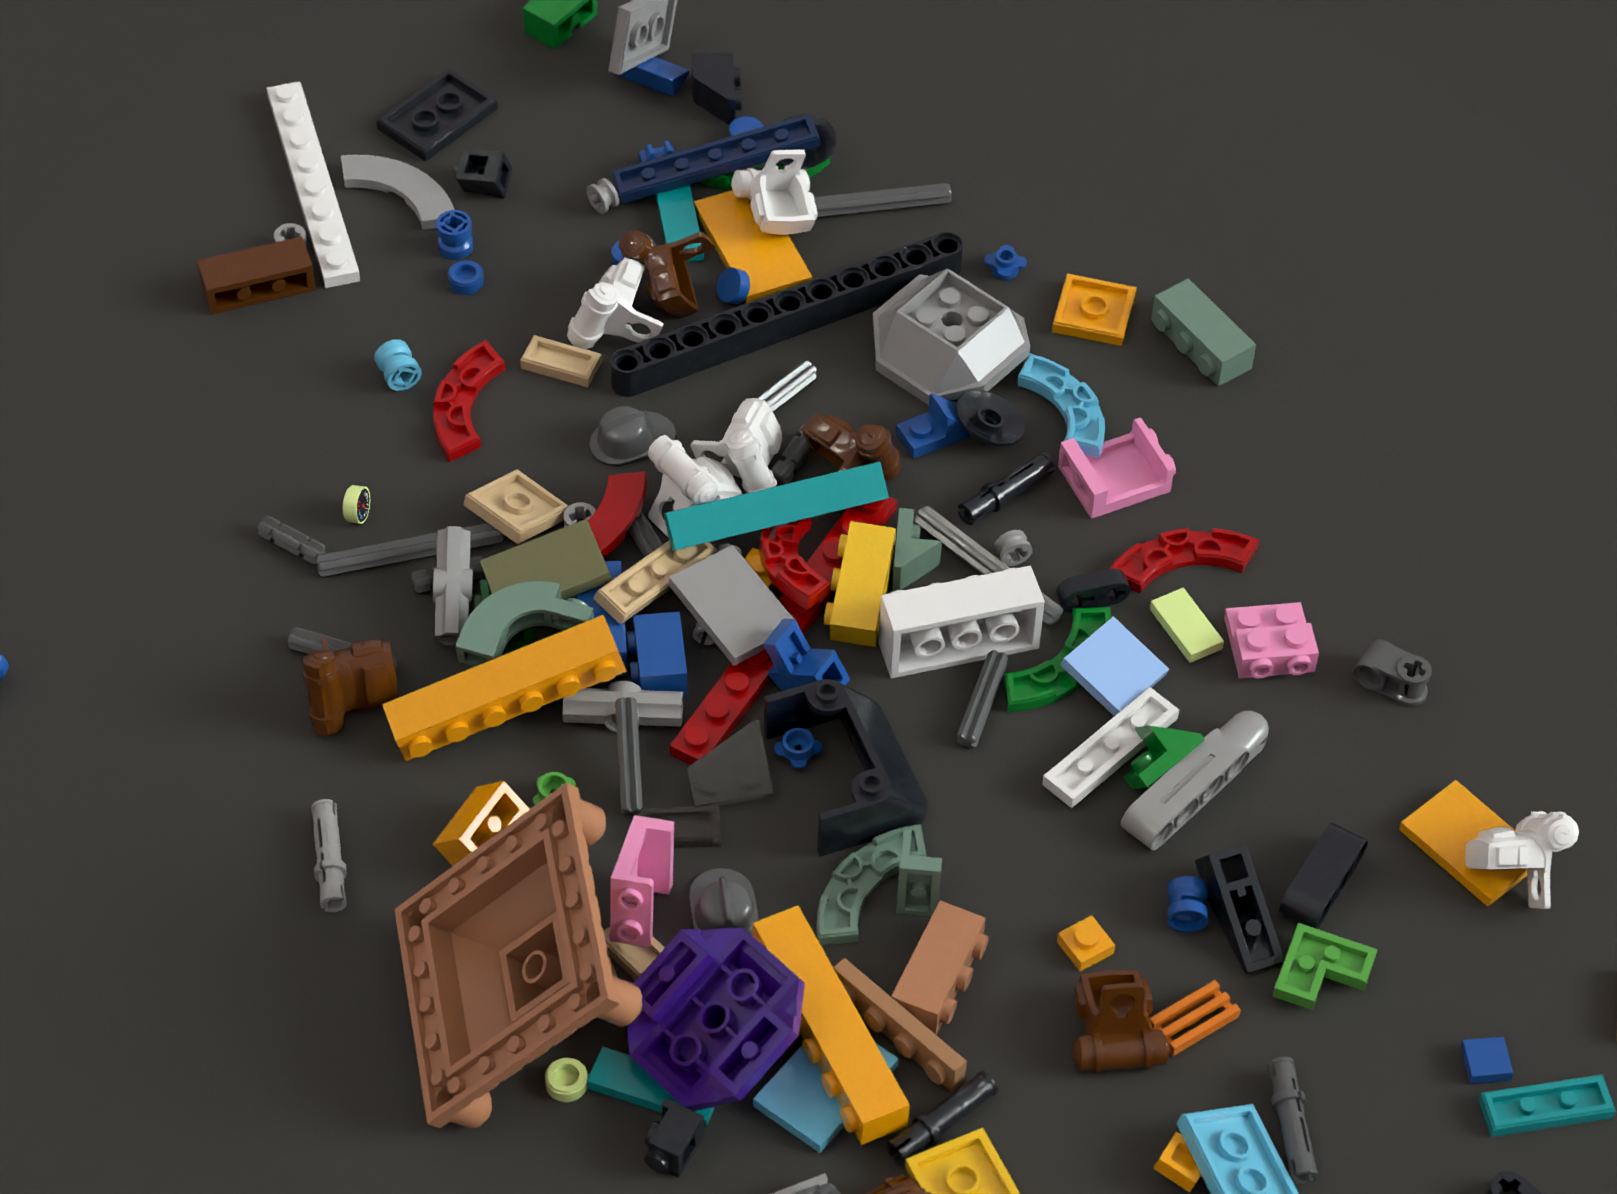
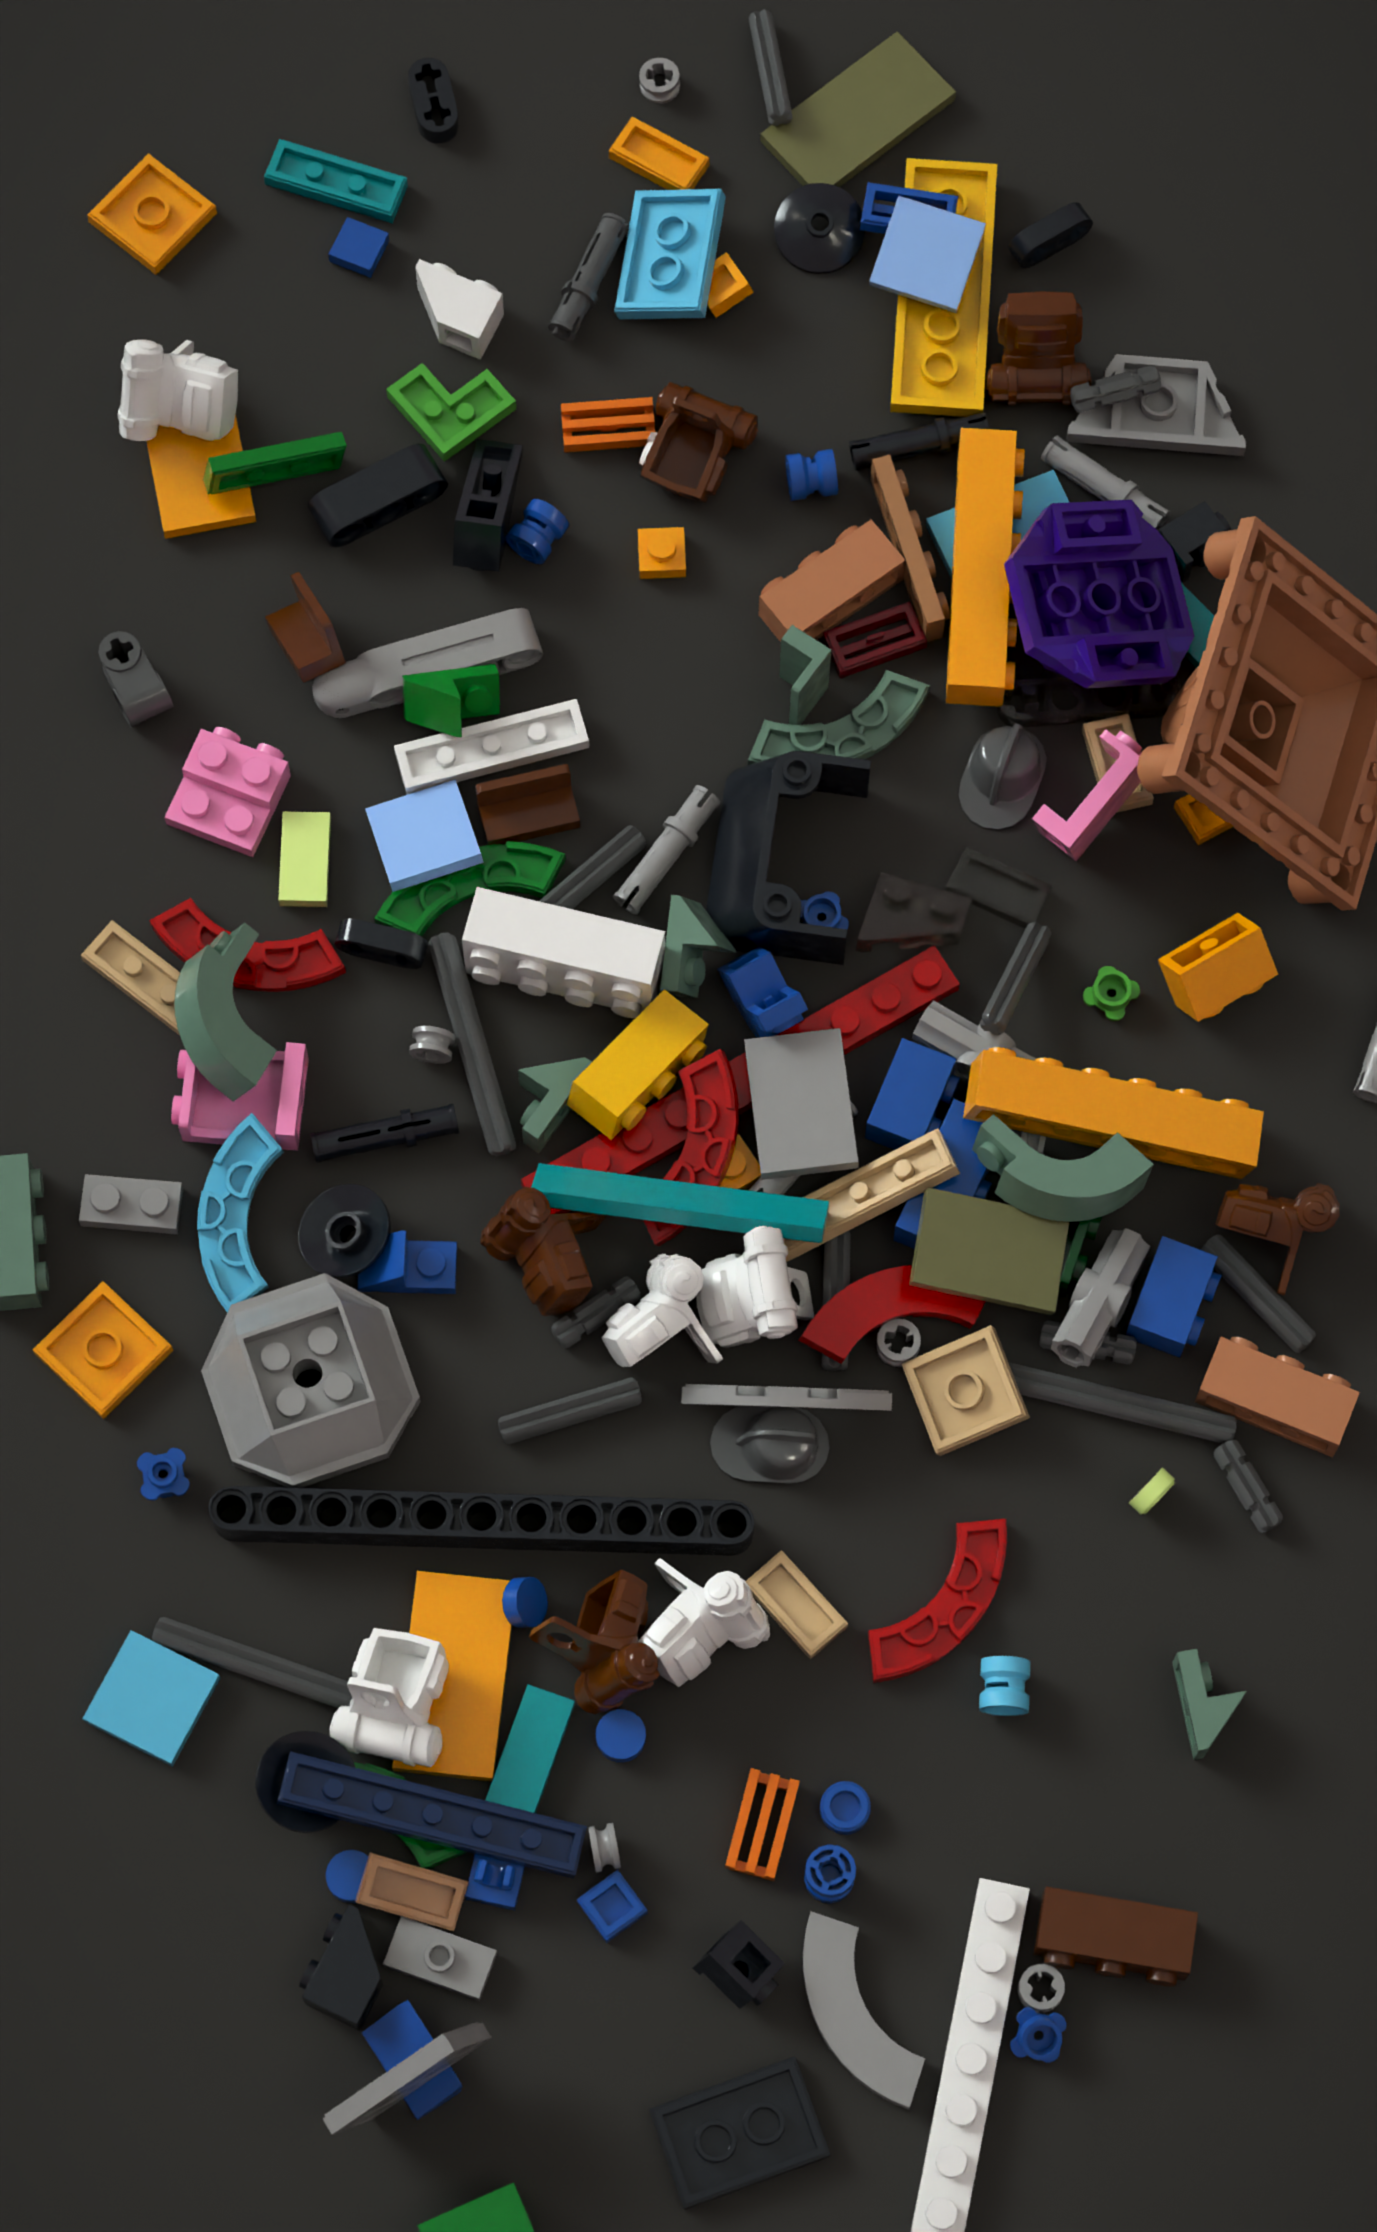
camera: 150 degrees left, 20 degrees up
(258, 403) = (1202, 1714): none -> sand green slope
(278, 213) = (1045, 2048): none -> blue plate
(296, 590) = (1277, 1395): none -> nougat brick
(402, 615) = (1172, 1296): none -> blue brick
(508, 230) = (773, 1783): none -> orange tile
(578, 177) = (612, 1906): none -> blue tile
(629, 434) = (786, 1397): none -> light grey tile
(667, 118) = (440, 1958): none -> light grey plate
(704, 130) = (411, 1891): none -> medium nougat tile
(769, 1154) = (1100, 481): none -> light grey pin
(876, 671) = (688, 935): none -> sand green slope
(886, 953) = (881, 655): none -> dark red tile
(927, 160) = (151, 1698): none -> medium azure tile
(937, 751) = (678, 834): none -> light grey pin
(1009, 1045) = (813, 474): none -> blue wheel
(1056, 721) = (527, 805): none -> reddish brown panel
(1139, 387) = (131, 1204): none -> light grey plate
(1149, 461) = (208, 1019): none -> sand green arch
(1229, 511) = (135, 971): none -> tan tile
(1296, 749) = (306, 634): none -> reddish brown panel
(1373, 1038) = (460, 309): none -> white slope
(1413, 850) = (274, 463): none -> green tile

